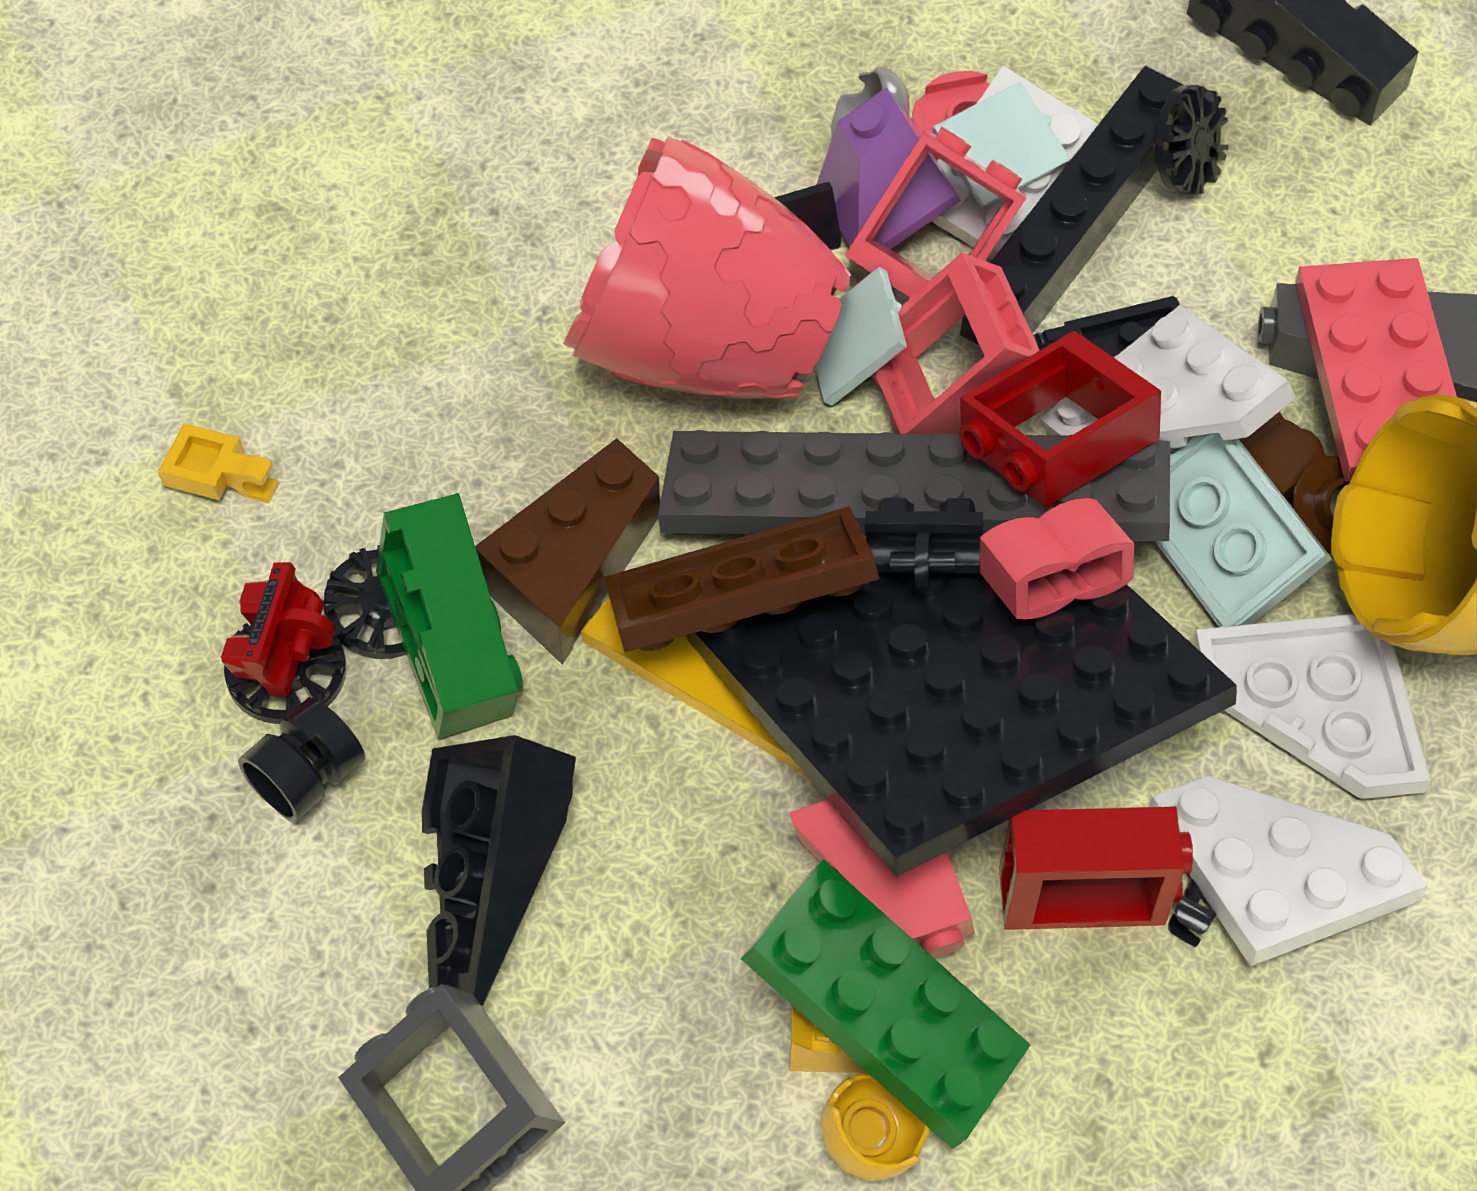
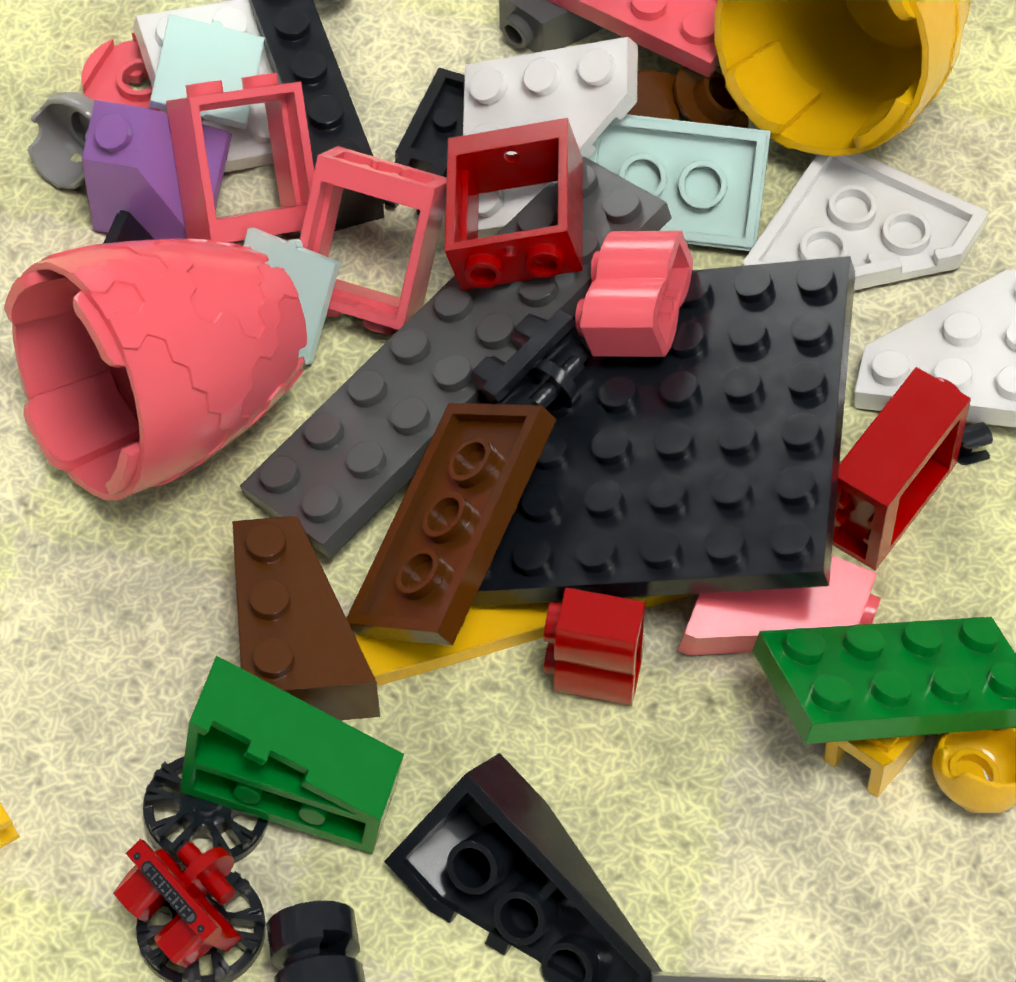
camera: 50 degrees left, 0 degrees up
(727, 759) = (595, 645): none -> red brick

